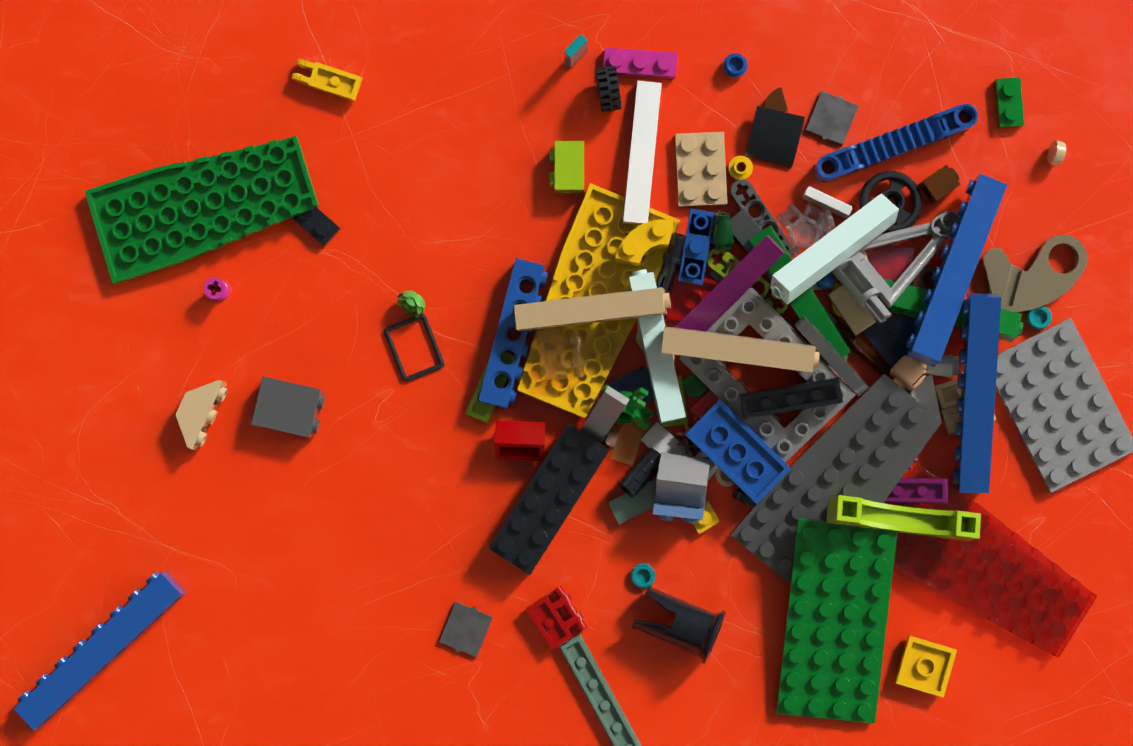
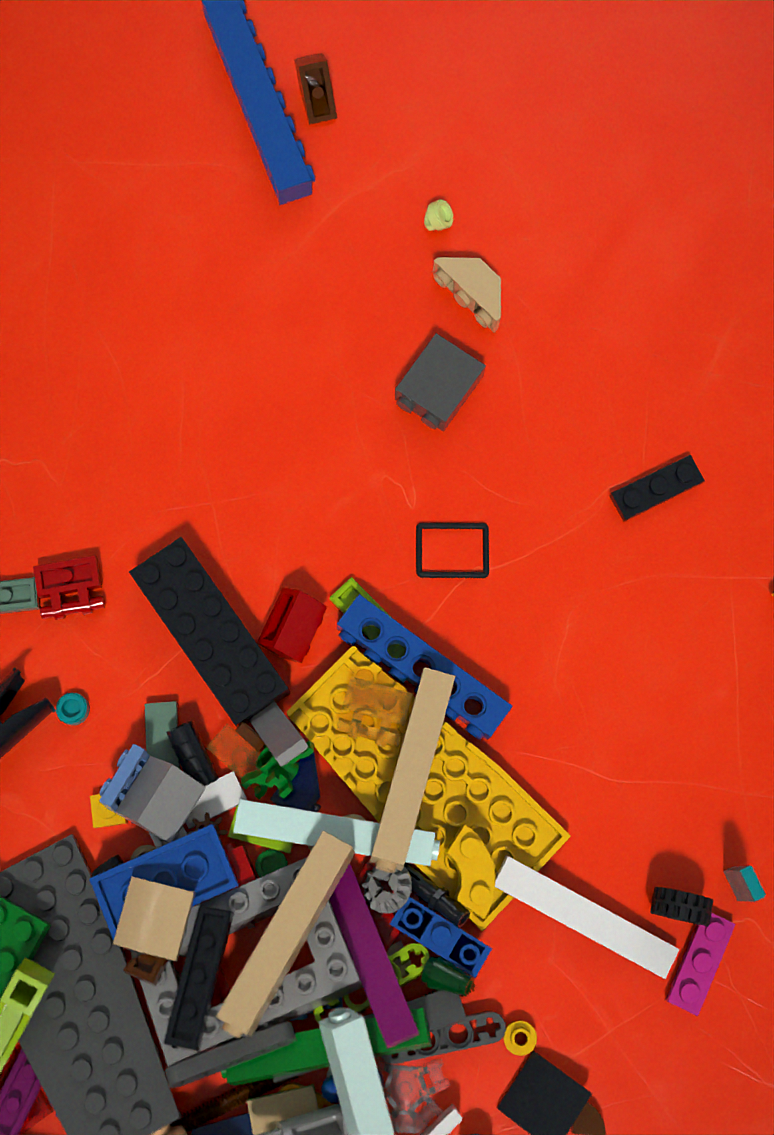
camera: 110 degrees right, 10 degrees down
(75, 604) = (315, 88): none -> reddish brown slope
(148, 462) = (438, 216): none -> yellowish green tile
(198, 206) = (709, 375): green wing -> none
(214, 282) = (609, 348): dark pink bush -> none
(411, 302) = (506, 566): bright green plate -> none
(466, 629) = (104, 482): flat silver piece -> none
(568, 167) = (601, 817): lime brick -> none
(688, 293) = (386, 901): none -> light grey gear
(701, 169) = (537, 985): tan plate -> none
(735, 65) = (654, 1086): blue plate -> none
(765, 446) = (154, 918): none -> tan slope
(797, 436) = (146, 968): none -> reddish brown tile

